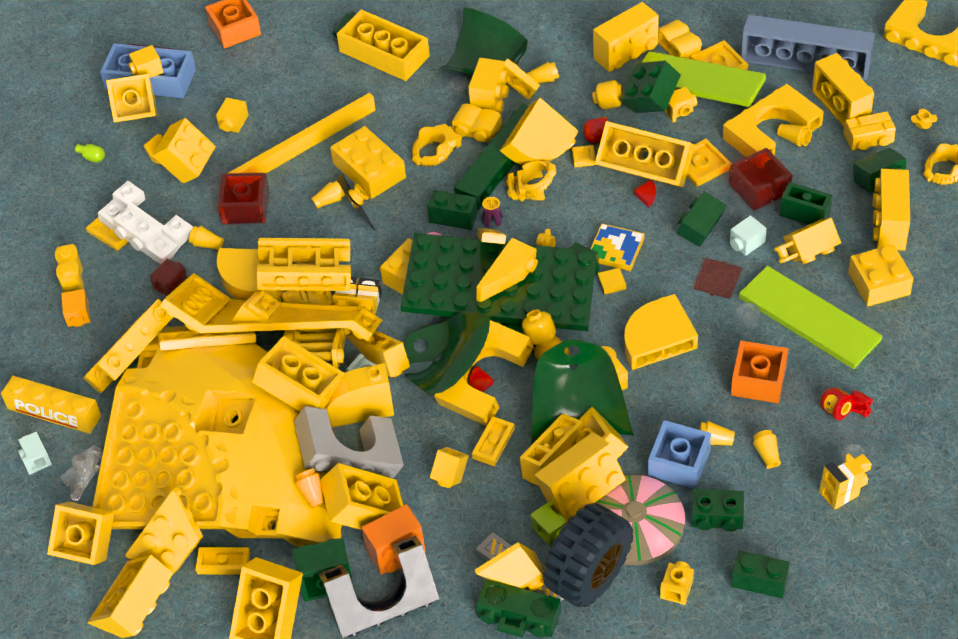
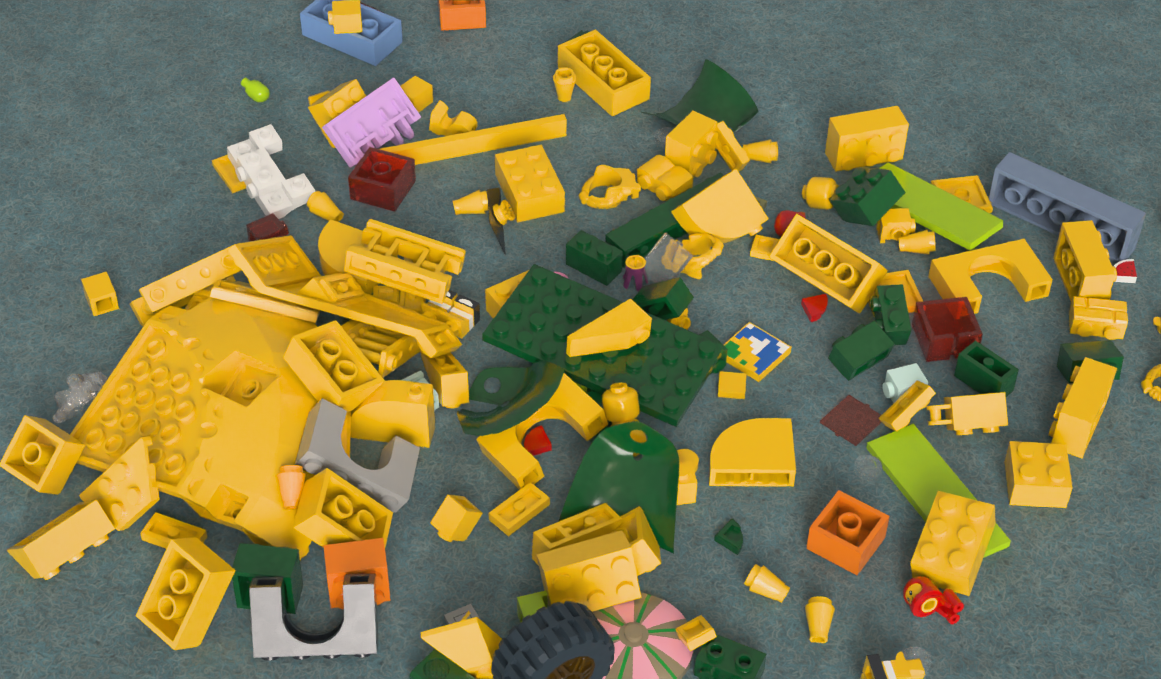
camera: 15 degrees right, 5 degrees down
(33, 453) = (42, 362): light aqua brick -> none
(51, 404) = (84, 320): yellow brick -> none
(52, 374) = (100, 293): none -> yellow brick
(69, 268) = (172, 195): yellow brick -> none
(76, 308) = (159, 234): light orange brick -> none
(131, 98) = (318, 48): yellow slope -> none
(213, 148) = (373, 120): none -> lavender hinge
(282, 130) = (443, 125): none -> yellow leg
(355, 63) = (564, 83): none -> yellow cone
(491, 236) = (614, 292): yellow tile -> none
(513, 193) = (666, 259): none -> clear piece
(529, 227) = (664, 298): none -> dark green brick
(669, 406) = (730, 536): none -> dark green tile
(678, 40) = (926, 159): yellow brick -> none
(679, 454) = (714, 589): medium blue brick -> none
(683, 493) = (695, 632): none -> yellow tile
(705, 112) = (919, 242): none -> yellow cone
(711, 178) = (892, 312): none -> dark green brick
(758, 253) = (907, 406): none -> yellow plate
(795, 134) = (1012, 296): yellow cone -> none
(843, 352) = (954, 542): none -> yellow brick
(873, 81) = (1126, 271): none -> tile

